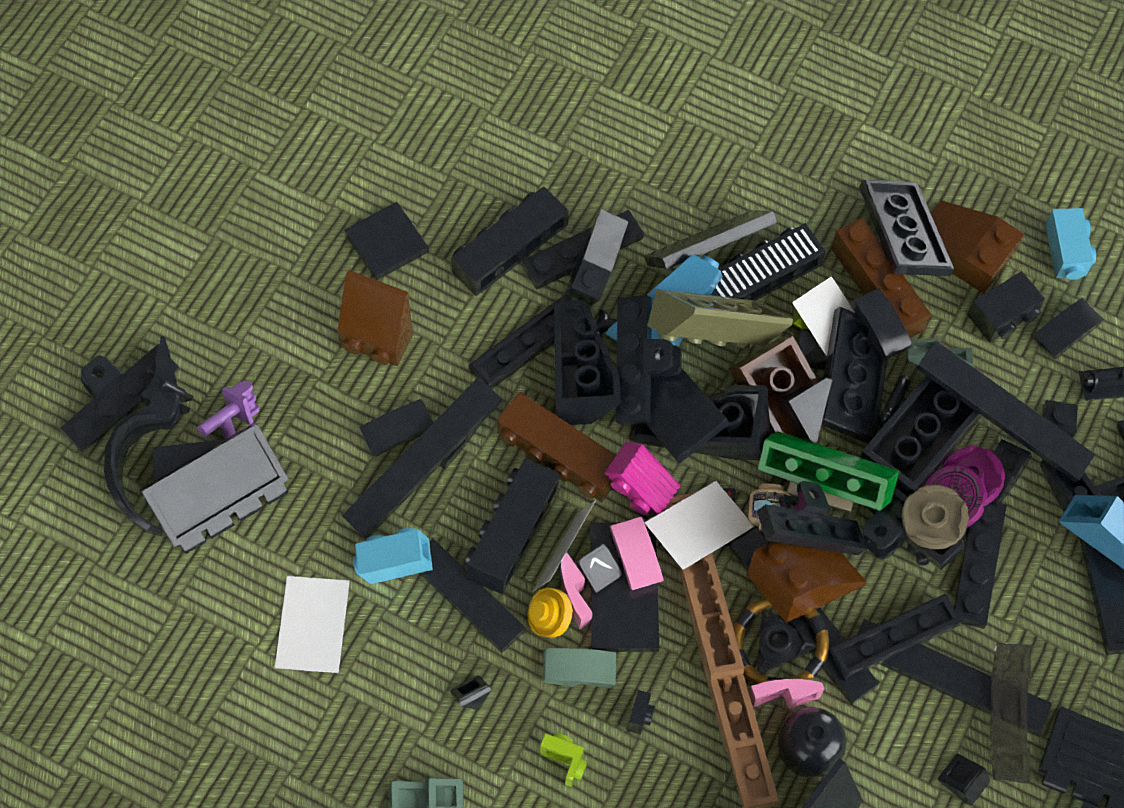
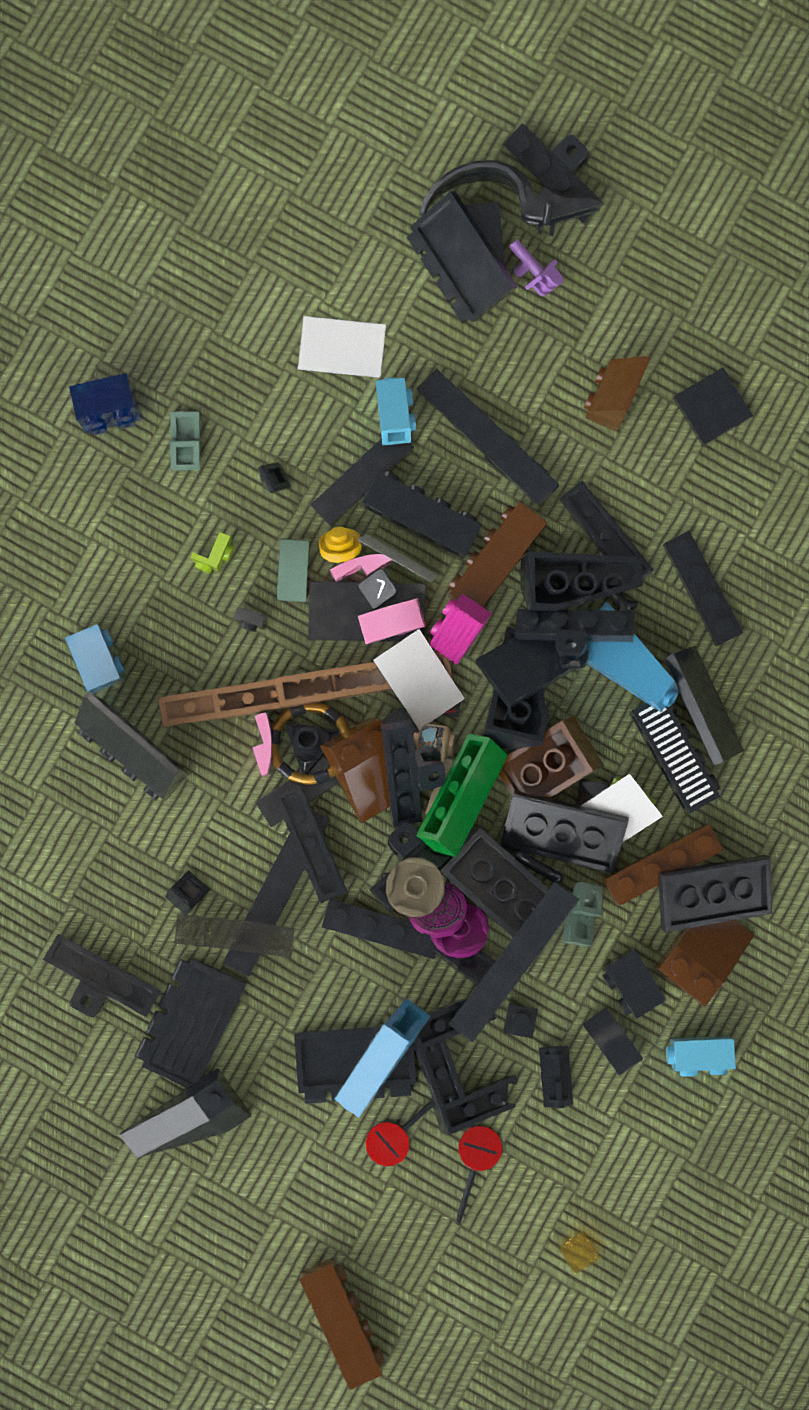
camera: 90 degrees right, 20 degrees up
(396, 427) = (519, 415): black slope -> none
(509, 240) = (709, 519): black brick -> none
(597, 258) = (686, 598): slope -> none
(714, 319) = (611, 698): olive slope -> none
(806, 408) = (527, 781): slope -> none
(811, 742) = (222, 764): black cylinder -> none
(883, 322) = (610, 859): black slope -> none

